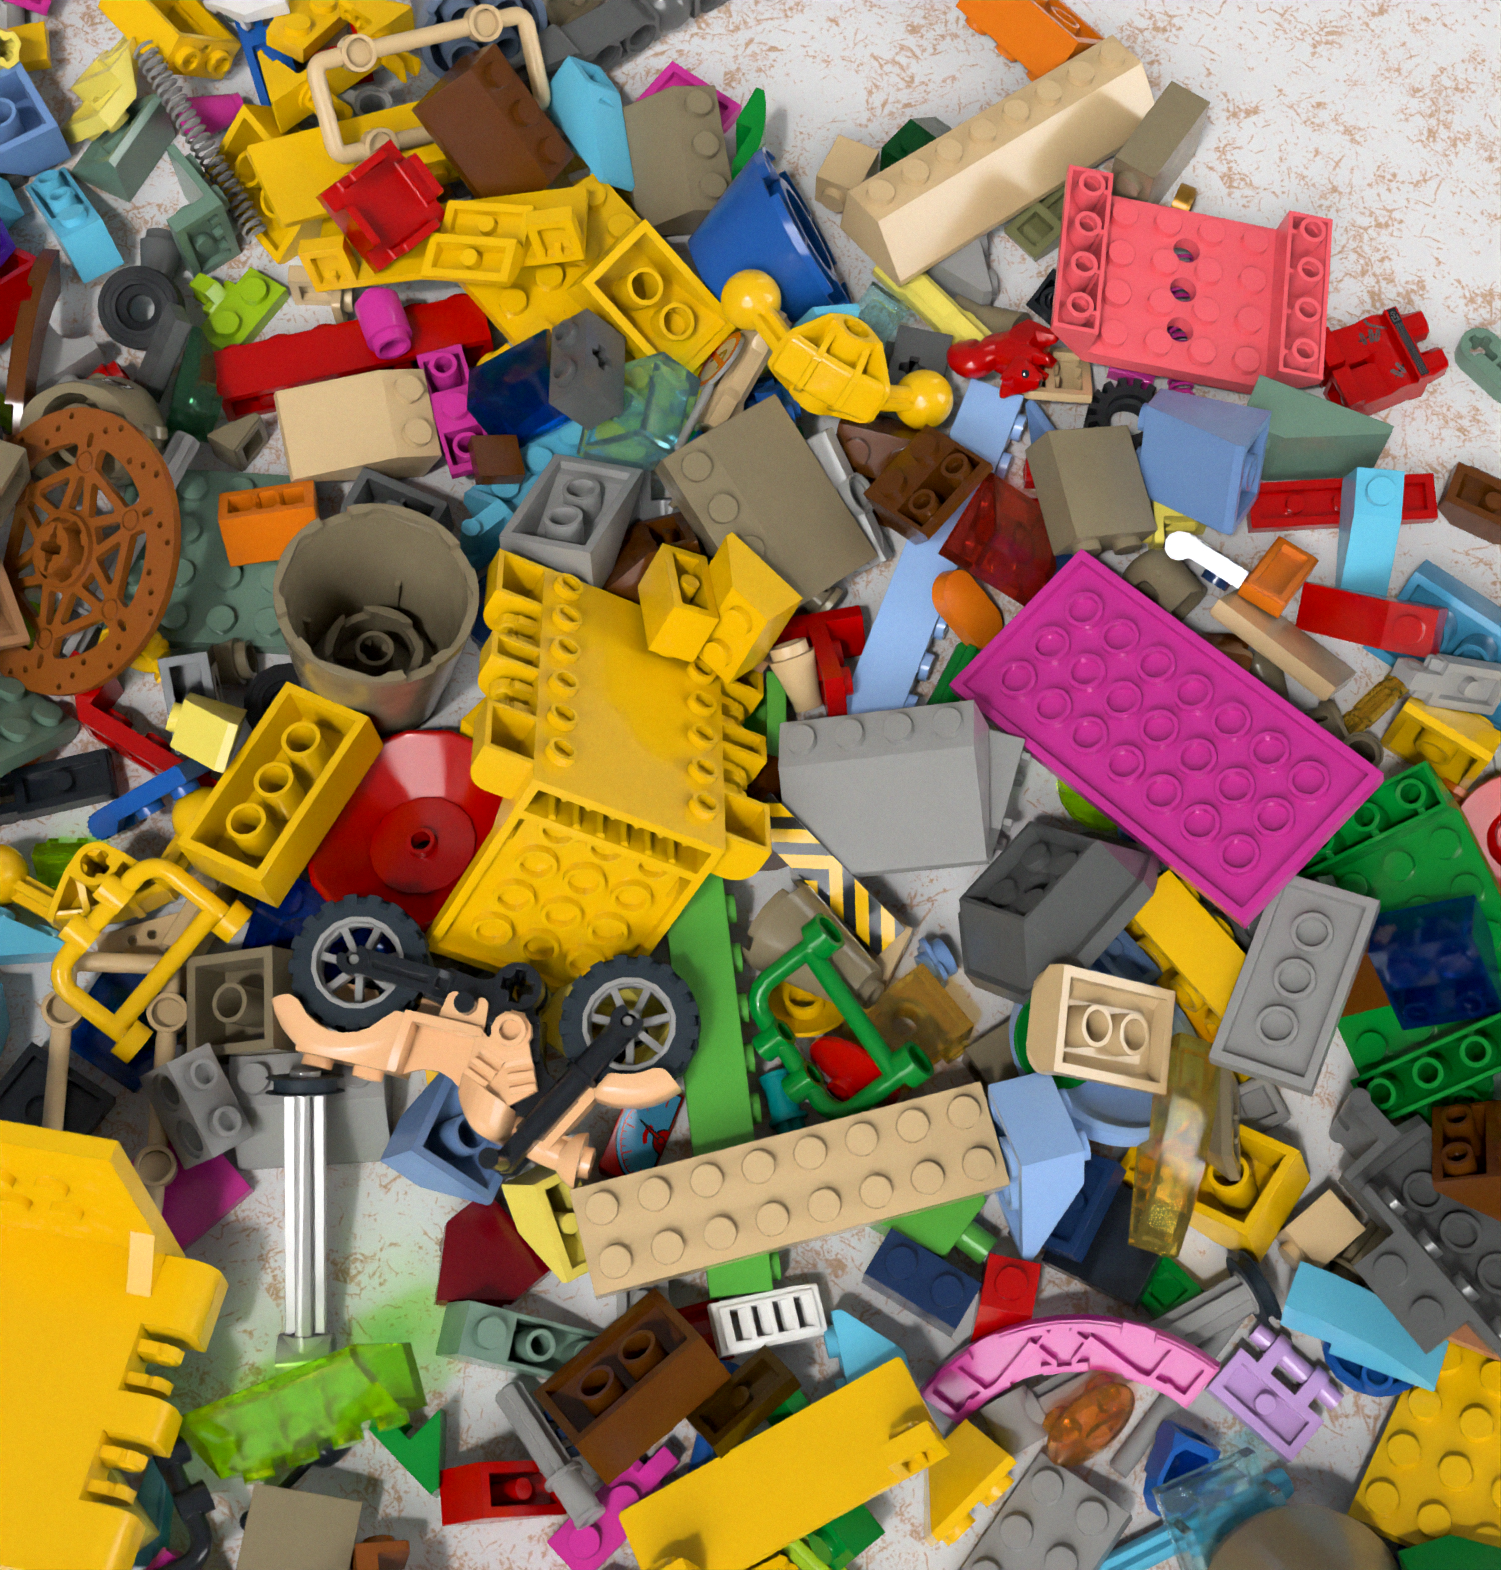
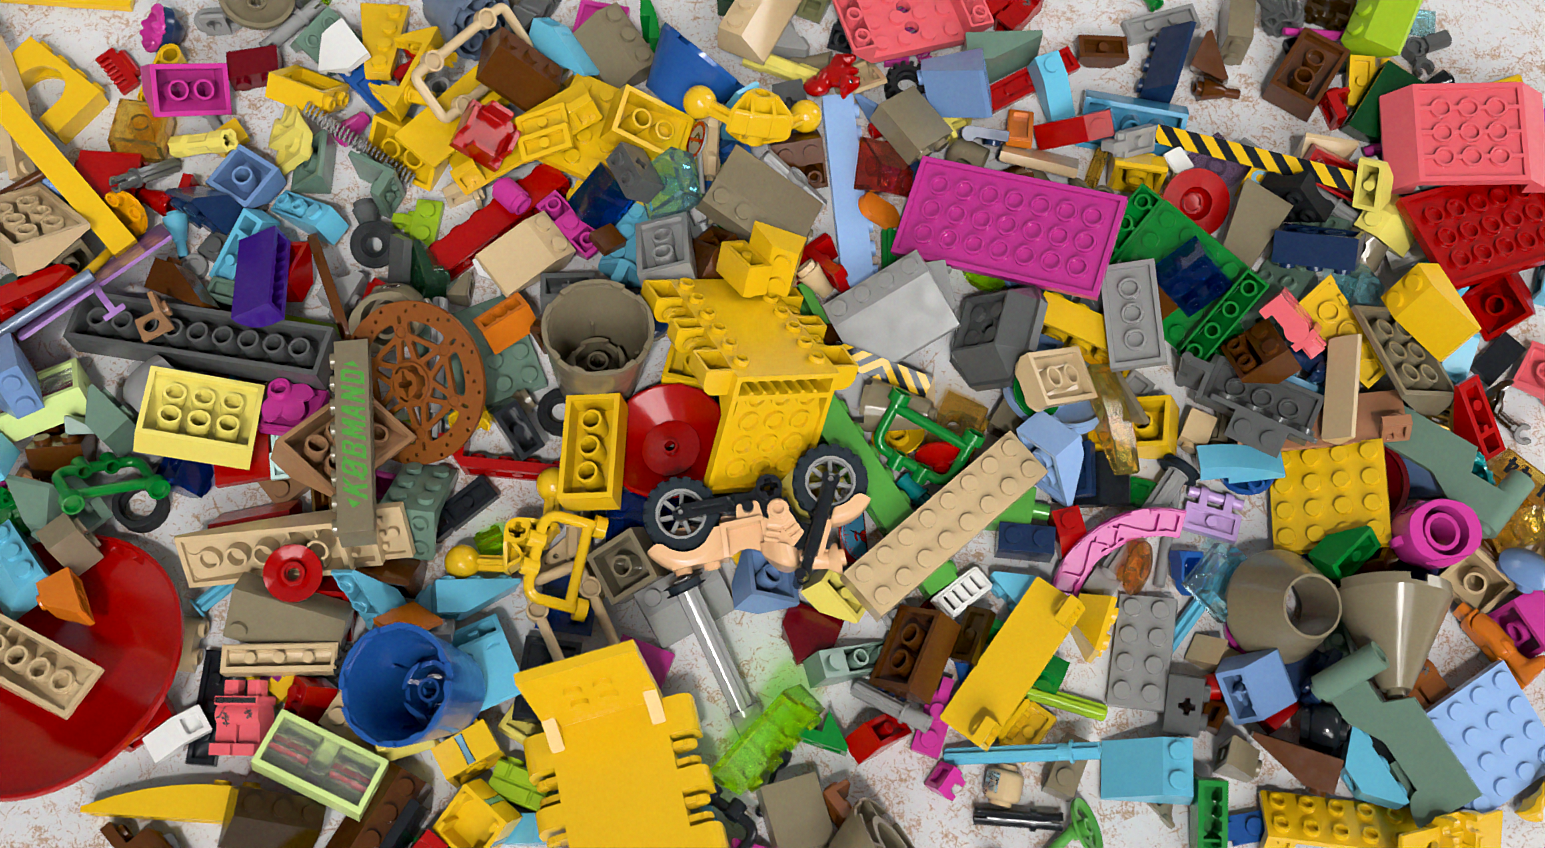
camera: 25 degrees left, 0 degrees up
(145, 799) = (519, 488): blue hinge -> none
(196, 1106) = (629, 619): light grey brick -> none
(206, 730) = (538, 438): light yellow slope -> none
(843, 169) = (703, 20): tan brick -> none
(881, 311) = (763, 78): clear light blue tile -> none
(926, 484) = (833, 157): reddish brown slope -> none
(937, 959) = (951, 384): medium blue plate -> none

